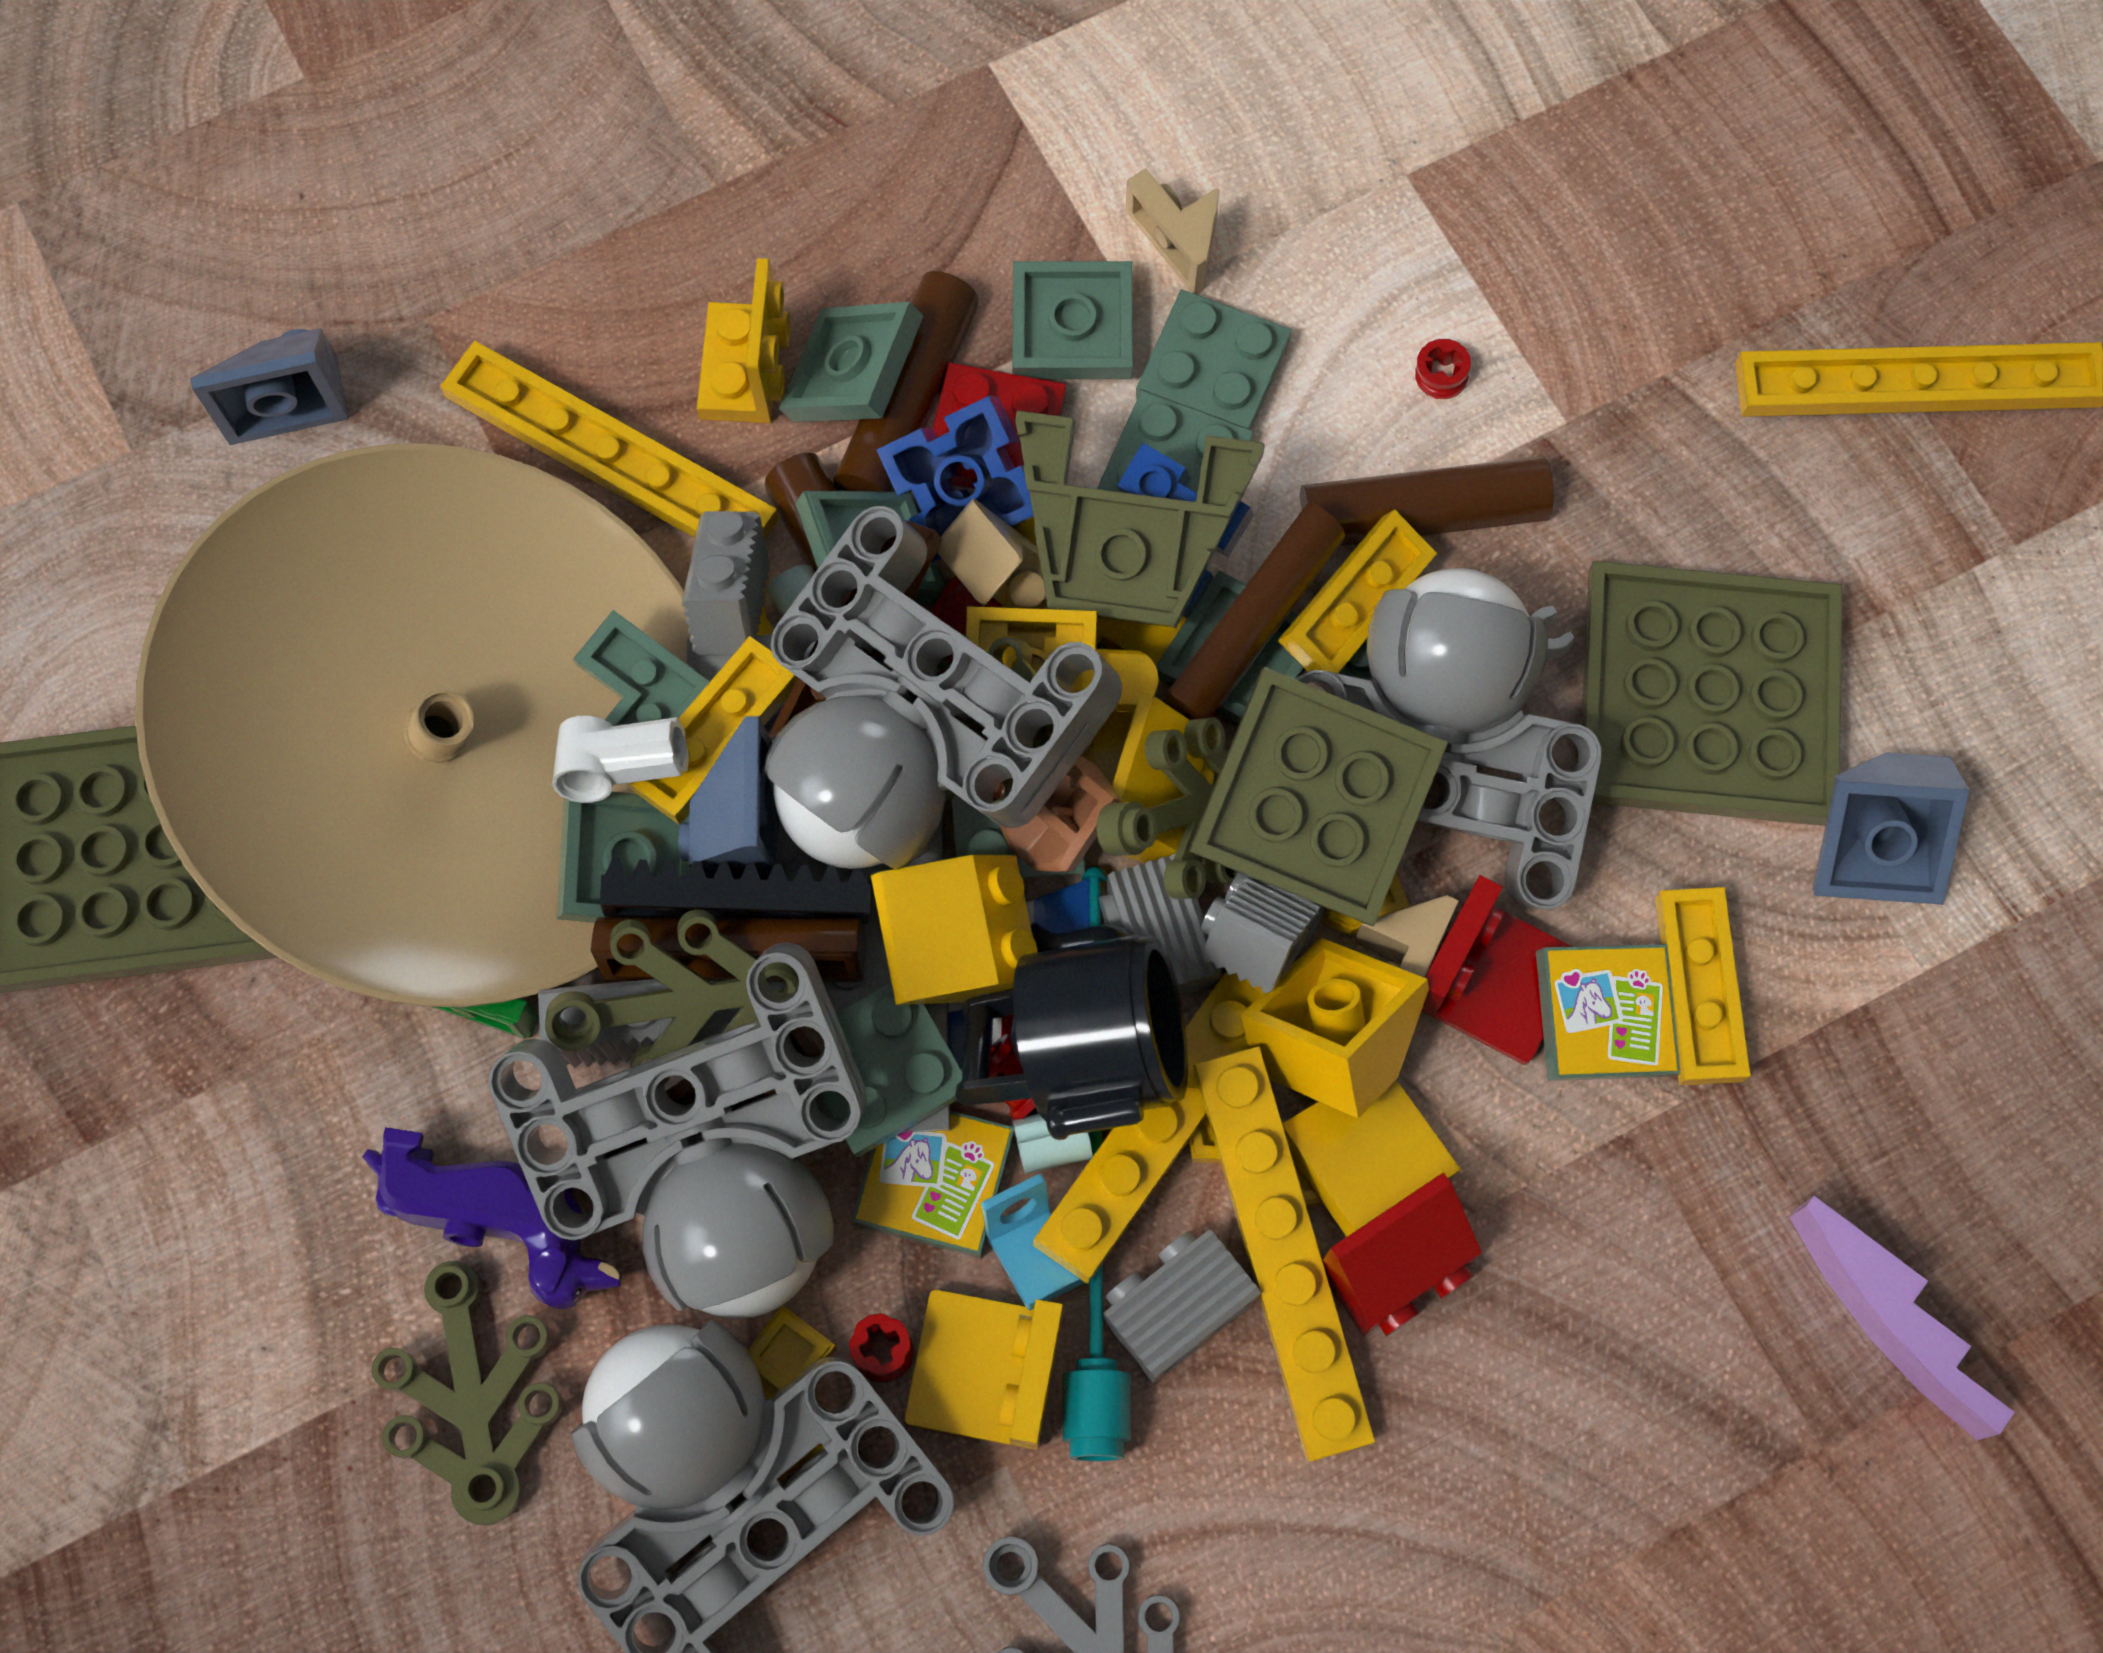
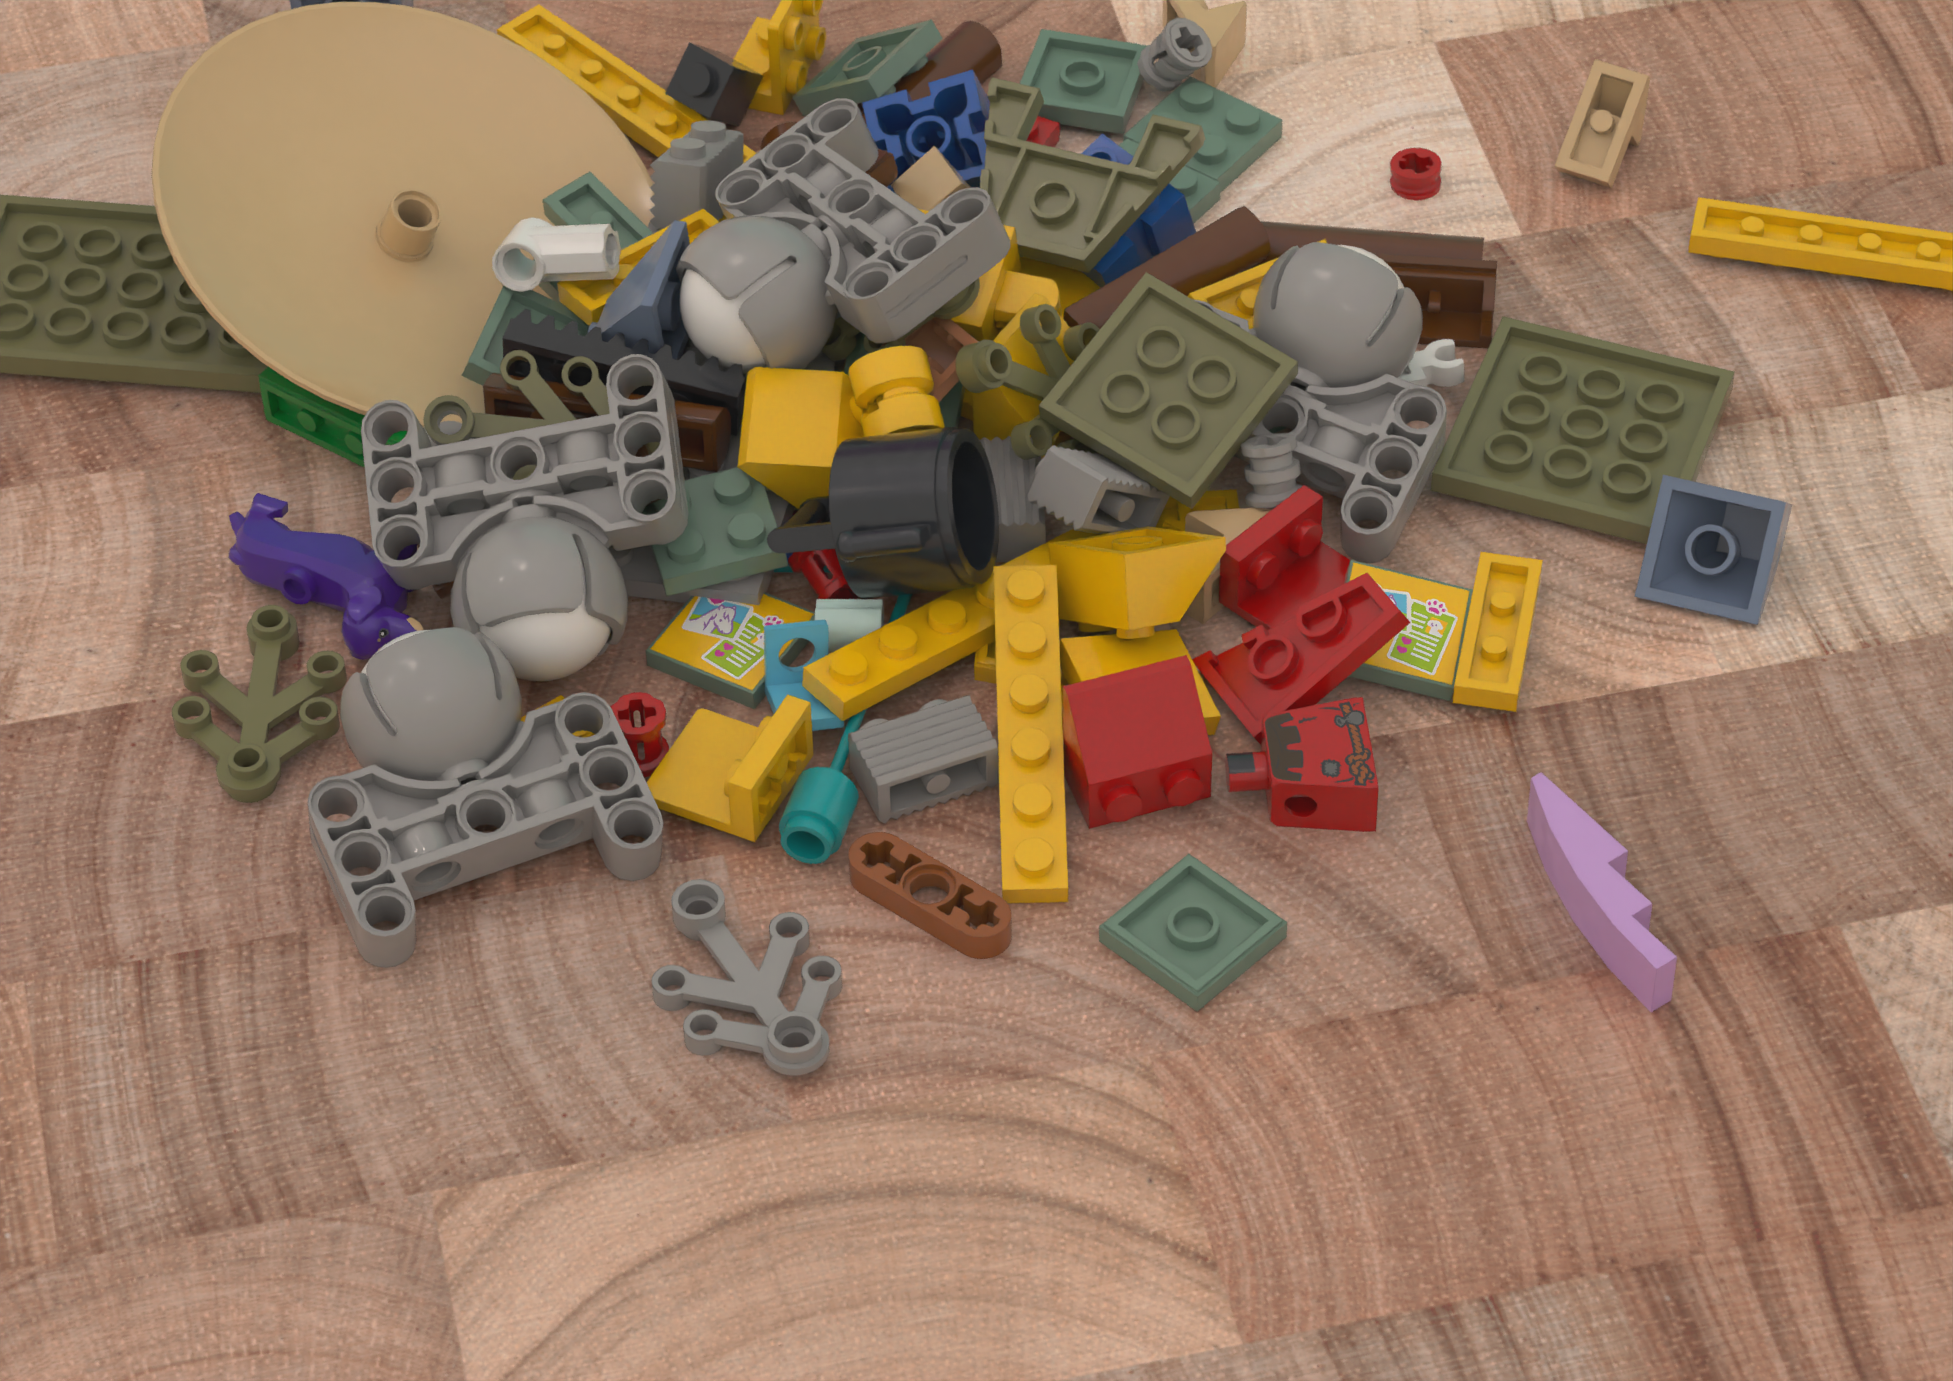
camera: 15 degrees right, 25 degrees down
(696, 423) = (714, 84): none -> black brick
(1046, 894) = (895, 391): none -> yellow wheel
(1173, 287) = (1174, 55): none -> light grey bush
(1290, 1485) = (940, 919): none -> dark orange beam
(1440, 860) = (1270, 469): none -> light grey bush
(1510, 1459) = (1193, 932): none -> sand green tile
(1522, 546) = (1453, 296): none -> reddish brown hinge
(1530, 1093) = (1305, 655): none -> red wing
(1575, 1221) = (1313, 768): none -> red torso
(1624, 276) = (1604, 123): none -> tan slope

